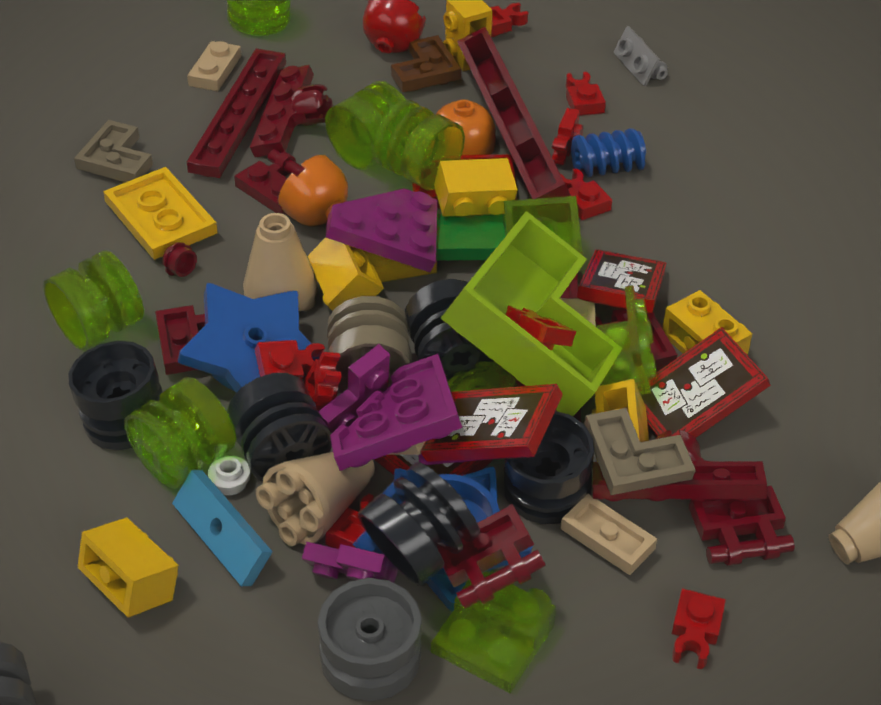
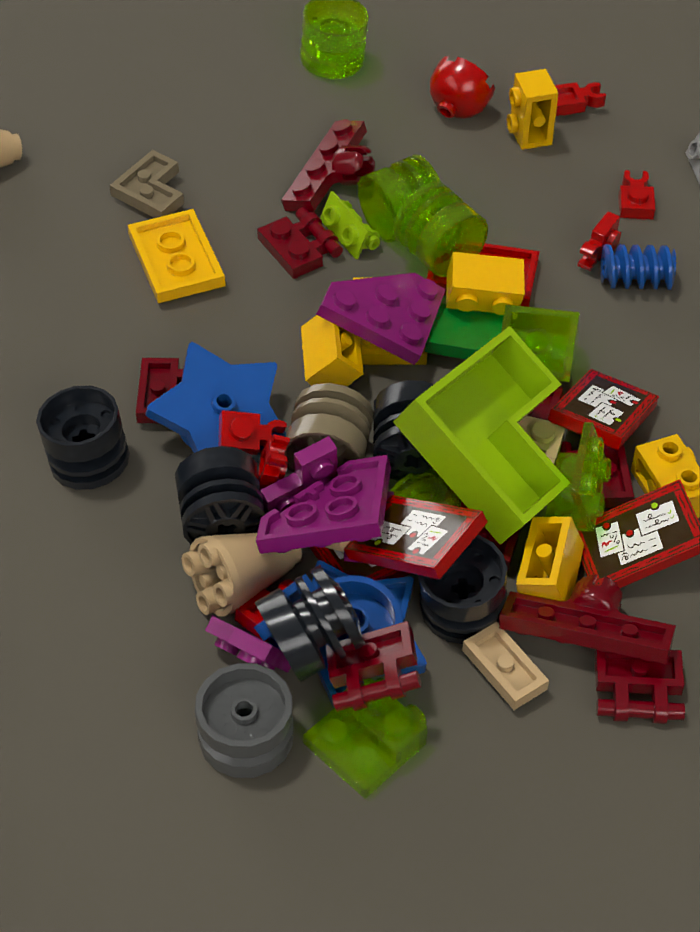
camera: 15 degrees right, 5 degrees up
(93, 300) = (80, 339): clear neon green wheel -> none
(127, 566) = (48, 605): yellow brick -> none
(179, 259) = (180, 308): dark red plate -> none
(180, 431) = (122, 488): clear neon green wheel -> none
(214, 65) = (272, 105): tan plate -> none
(222, 528) = (144, 584): dark azure tile -> none
(229, 474) = (169, 541): white plate -> none
(236, 114) = (278, 161): dark red plate -> none
(279, 263) = (268, 333): tan cone -> none
(309, 146) = (348, 226): none -> lime hinge
(314, 191) = (326, 259): orange cylinder -> none
(431, 66) = (488, 142): reddish brown plate -> none
(476, 124) = (505, 214): orange cylinder -> none
(512, 117) = (549, 215): dark red brick -> none
(543, 329) = (488, 451): red plate -> none
(590, 196) = (598, 310): red plate -> none
(635, 464) = (538, 602): dark tan plate -> none
(697, 624) = (562, 770): red plate -> none

